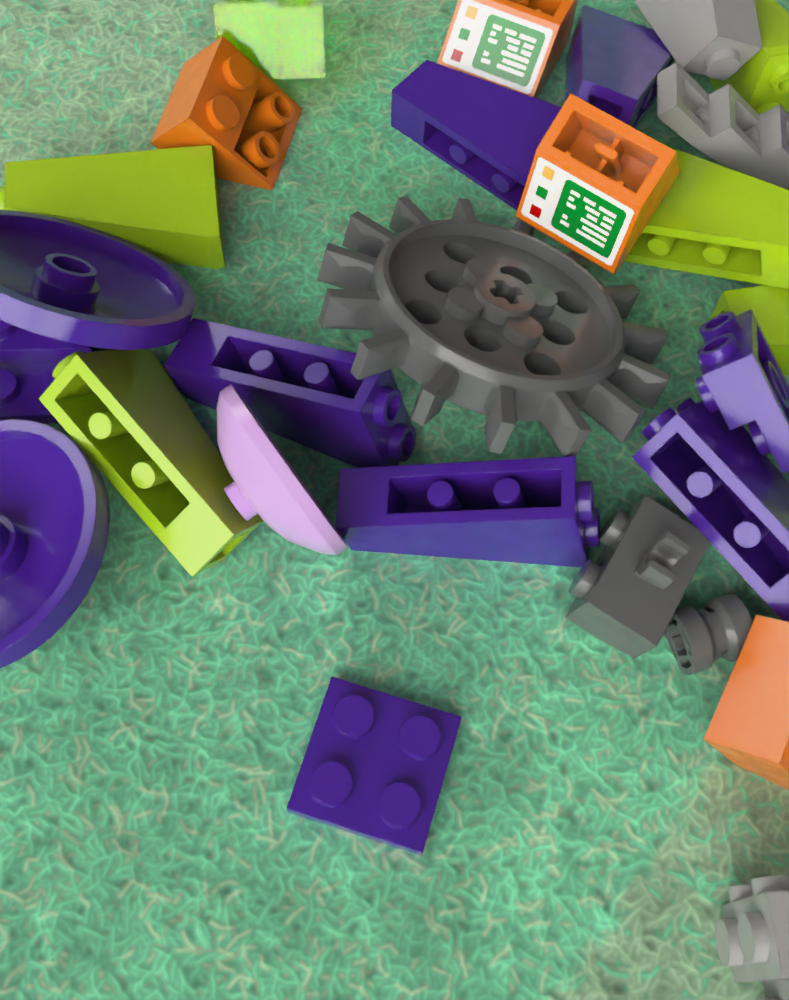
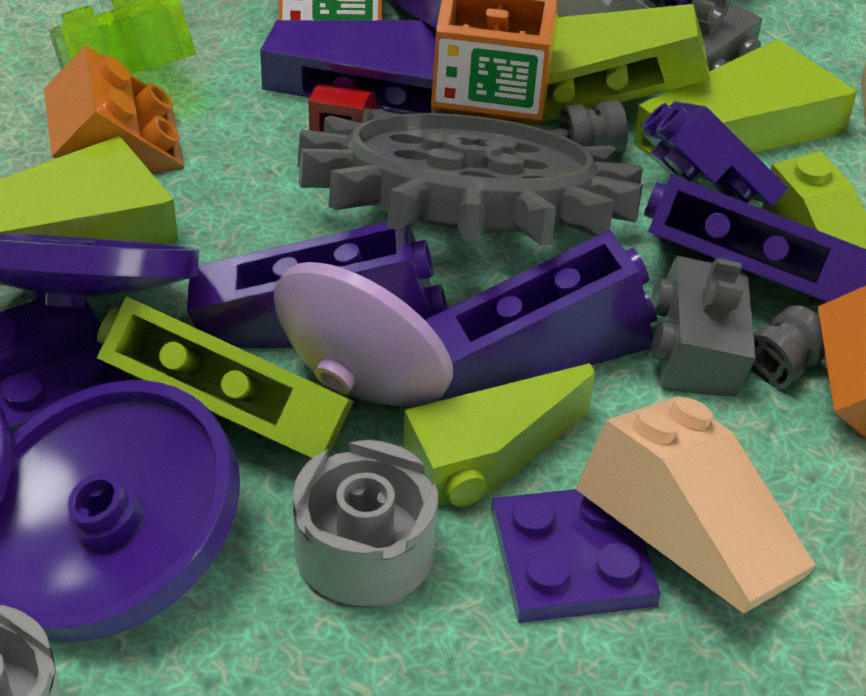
camera: 25 degrees left, 20 degrees down
(201, 625) = (365, 524): none -> light grey brick
(357, 610) = (491, 434): none -> lime slope
(436, 183) = (340, 103): none -> red brick
(504, 787) = (696, 500): none -> light nougat slope
(670, 296) = (596, 127): none -> dark grey wheel

